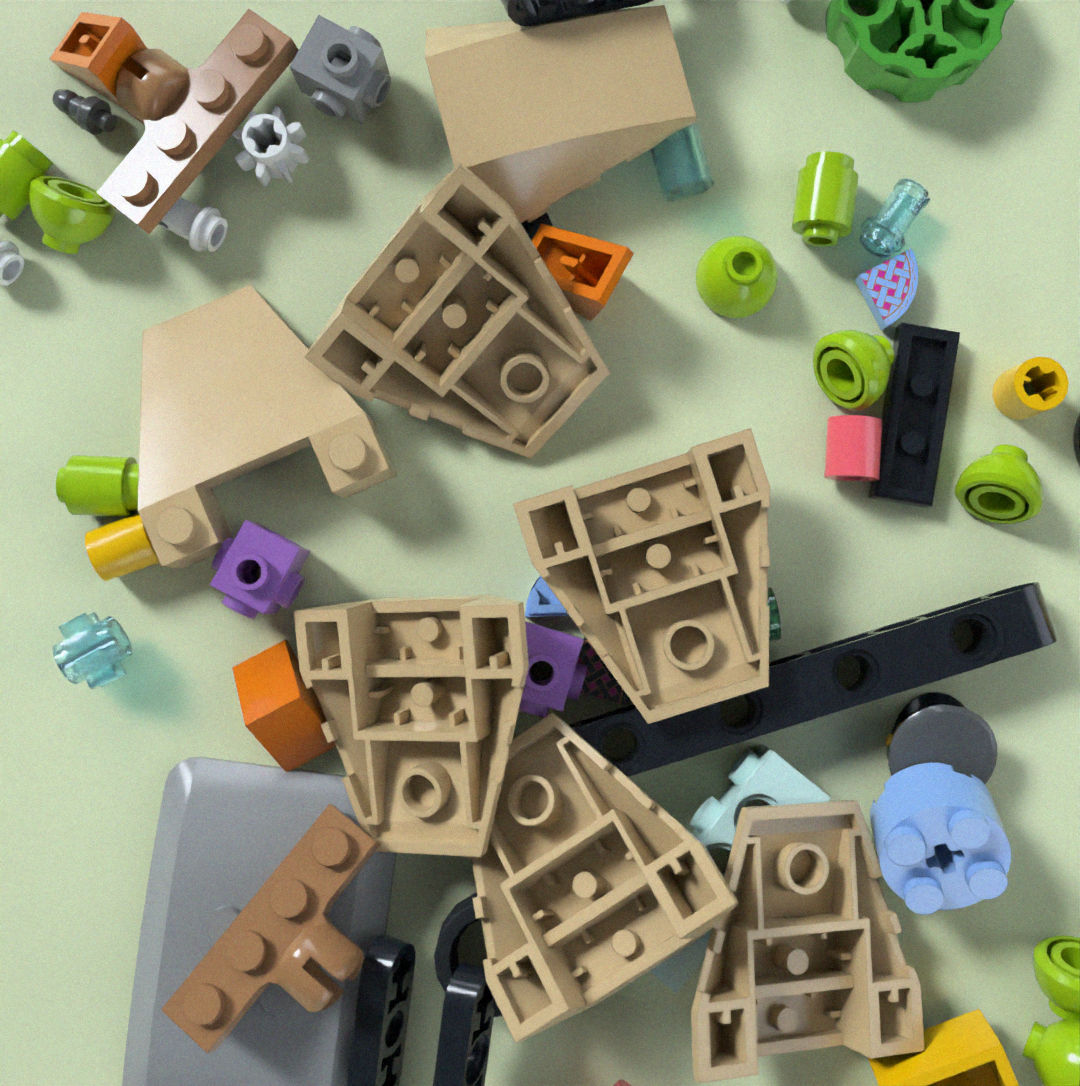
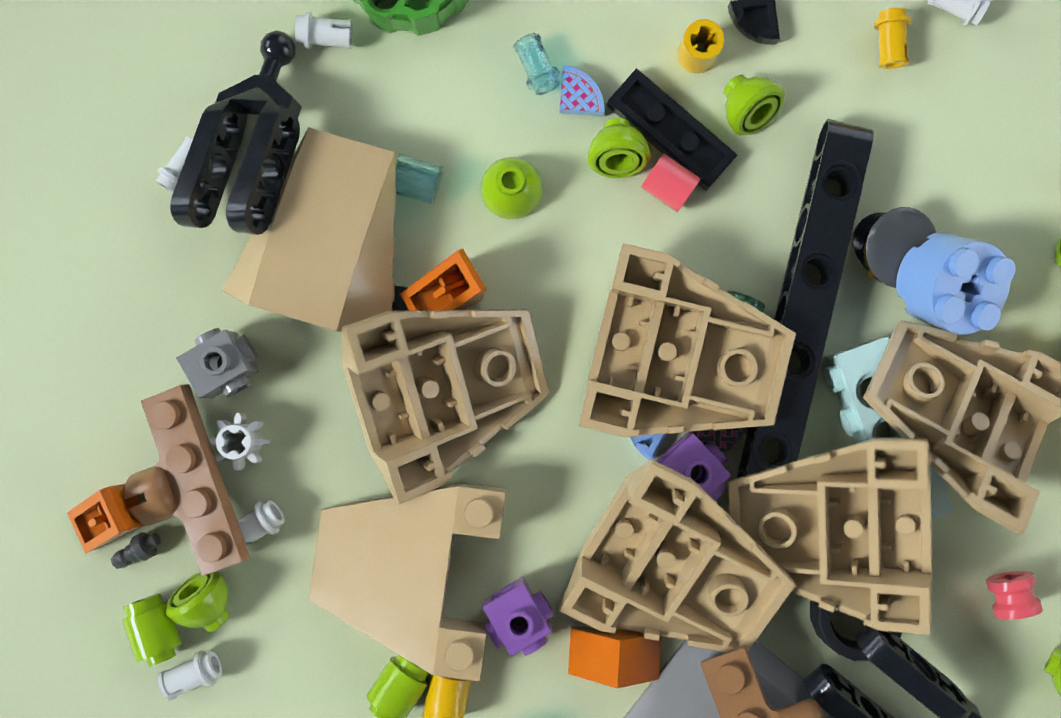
camera: 60 degrees left, 0 degrees up
(825, 198) = (497, 100): lime brick -> none

